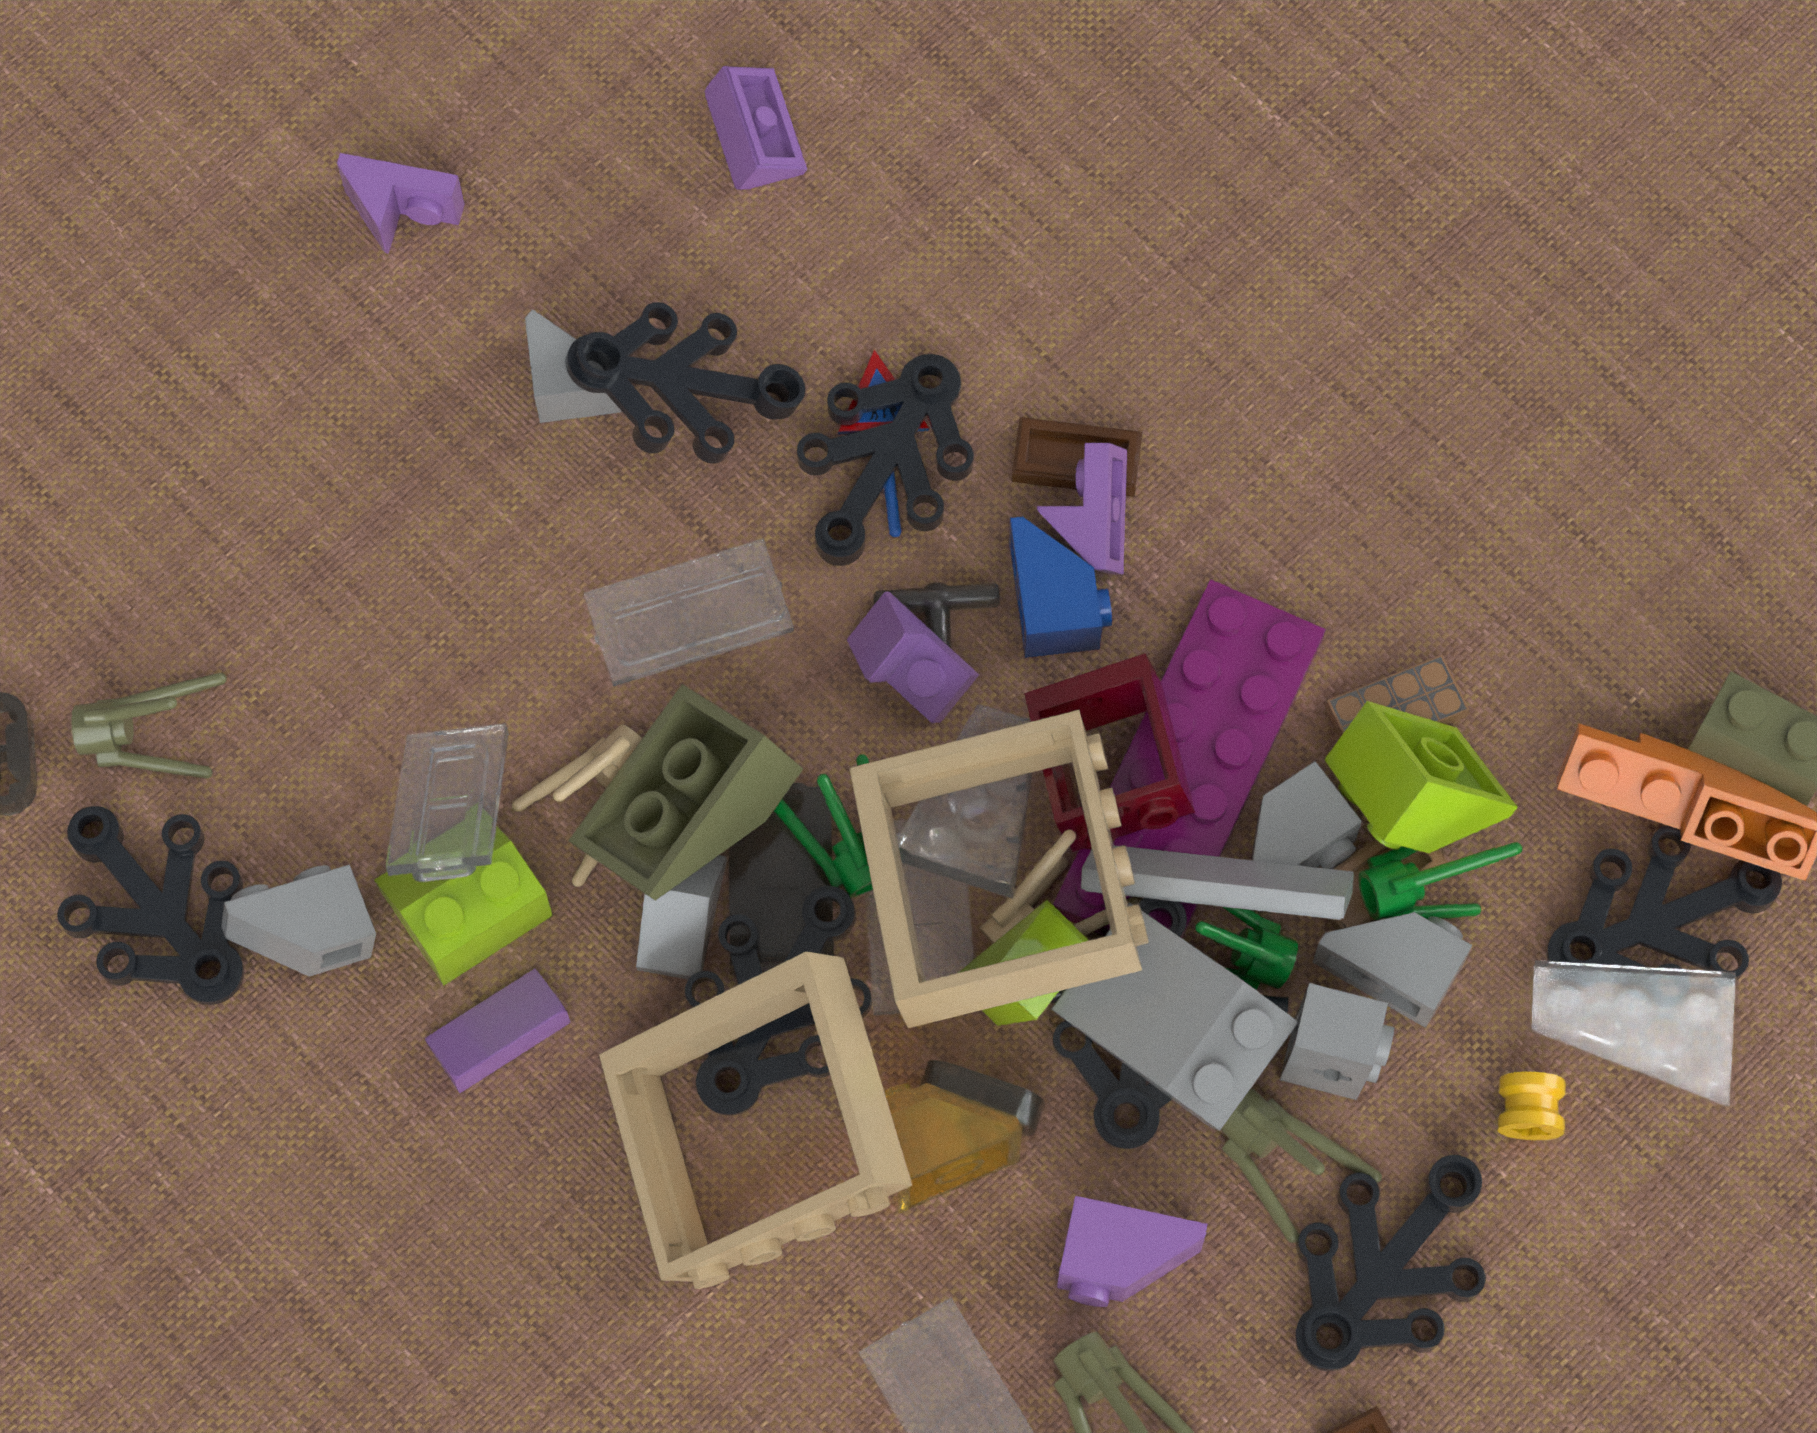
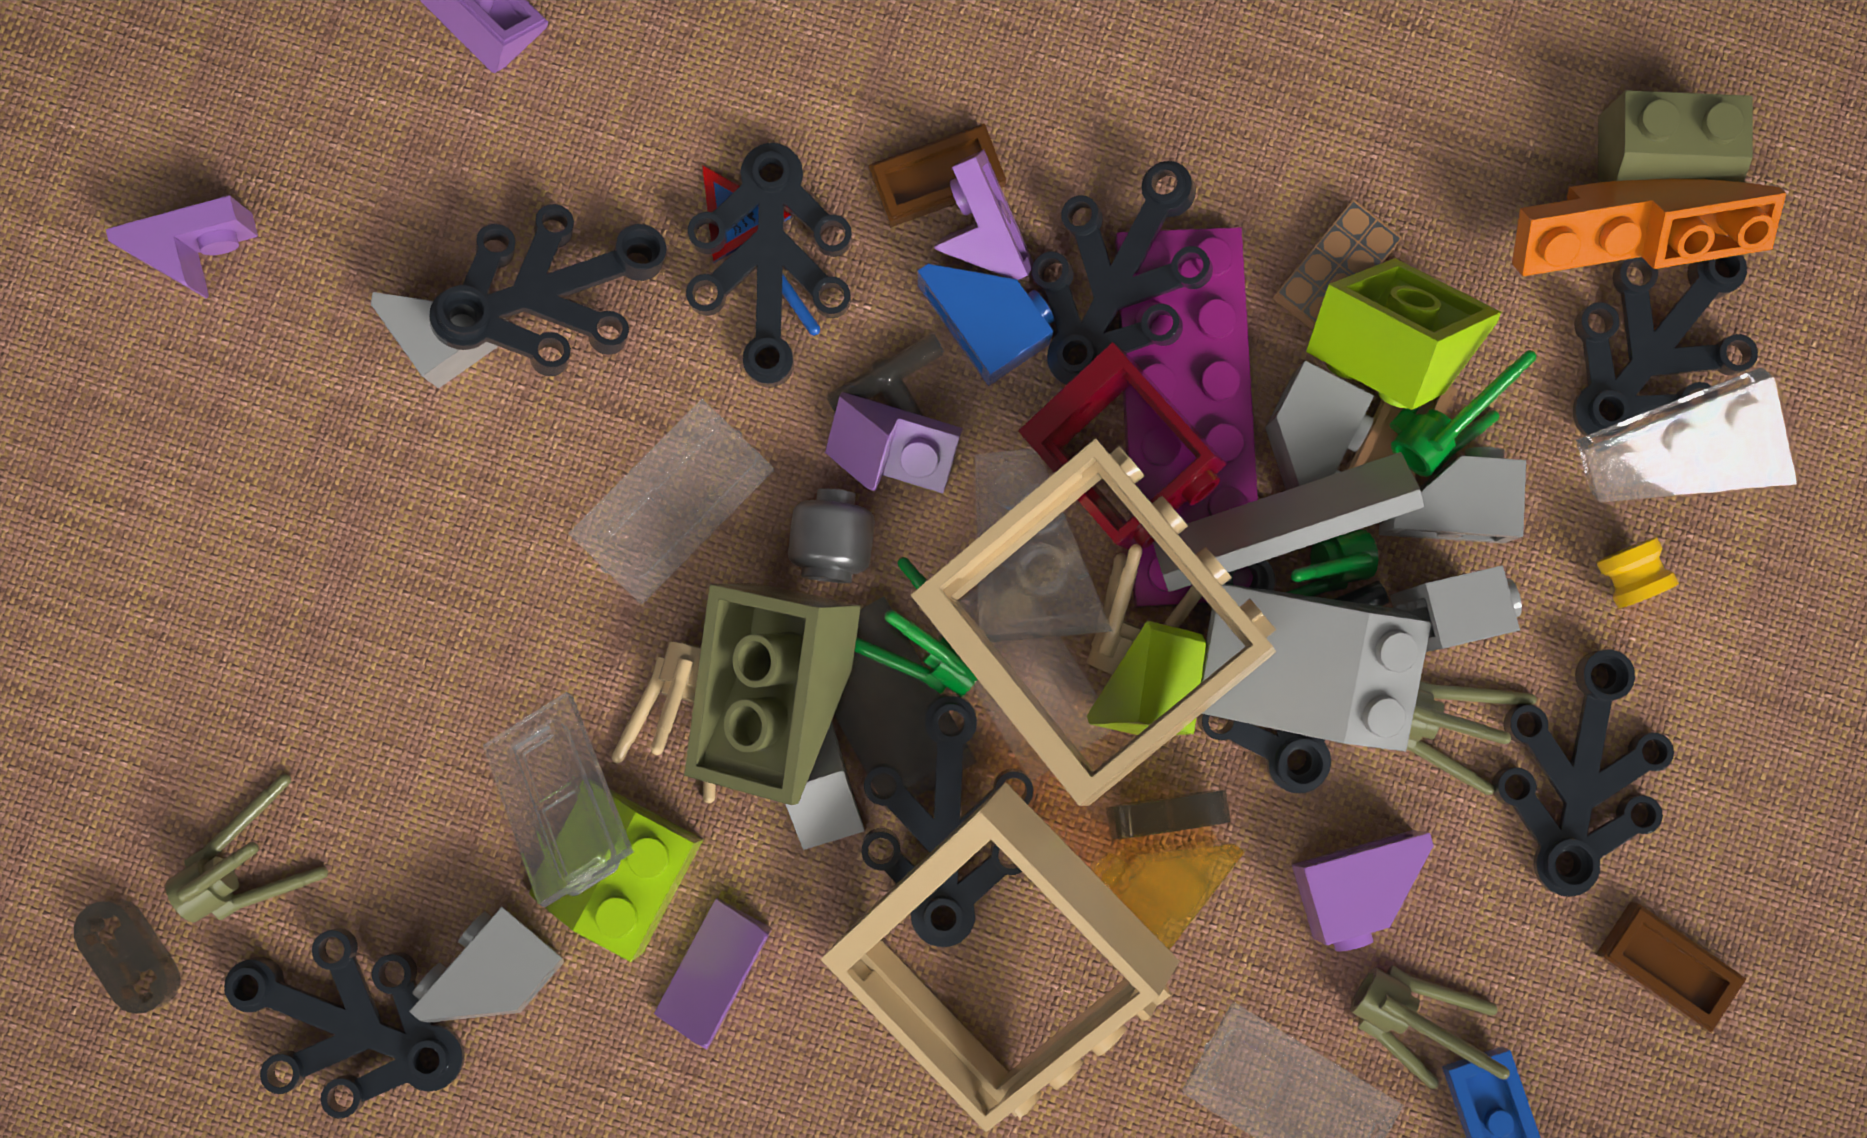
camera: 30 degrees left, 15 degrees up
(811, 709) = (831, 537): none -> flat silver head
(1187, 619) = (1118, 284): none -> black plant

